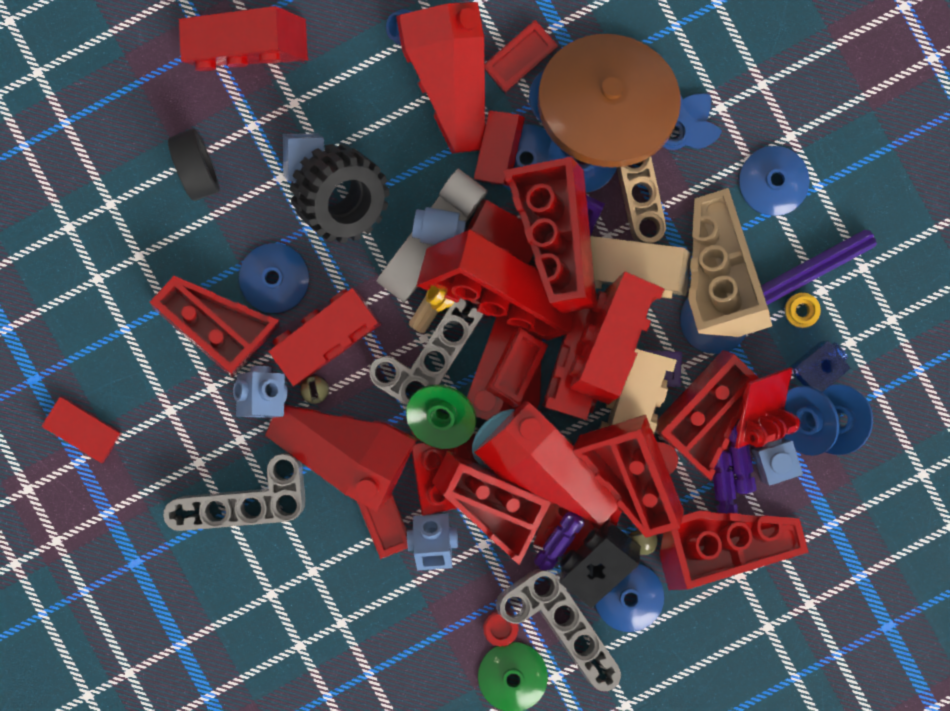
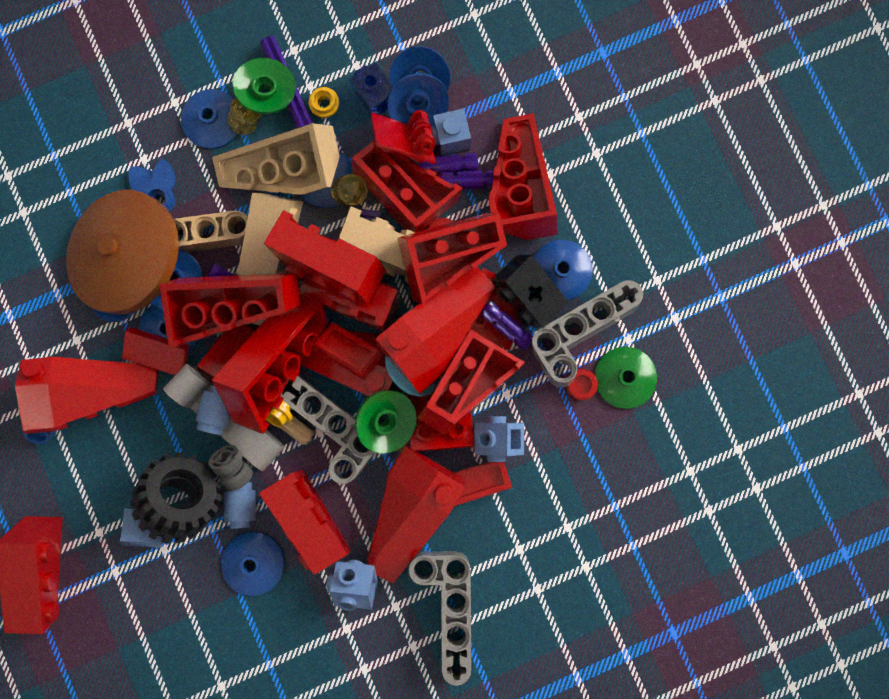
camera: 80 degrees left, 5 degrees down
(193, 164) = (138, 630): black tyre -> none
(215, 325) = (287, 621): red wedge -> none
(321, 387) = (352, 528): olive hinge -> none
(337, 259) = (240, 506): none -> medium blue brick
(377, 248) = (232, 469): none -> dark grey wheel
(520, 56) = (79, 327): red tile -> none
(647, 544) = (511, 250): olive hinge -> none
(700, 358) = (355, 188): none -> clear yellow wheel
(772, 215) = (239, 121): none -> clear yellow wheel
(827, 246) = (261, 75): none -> green dish

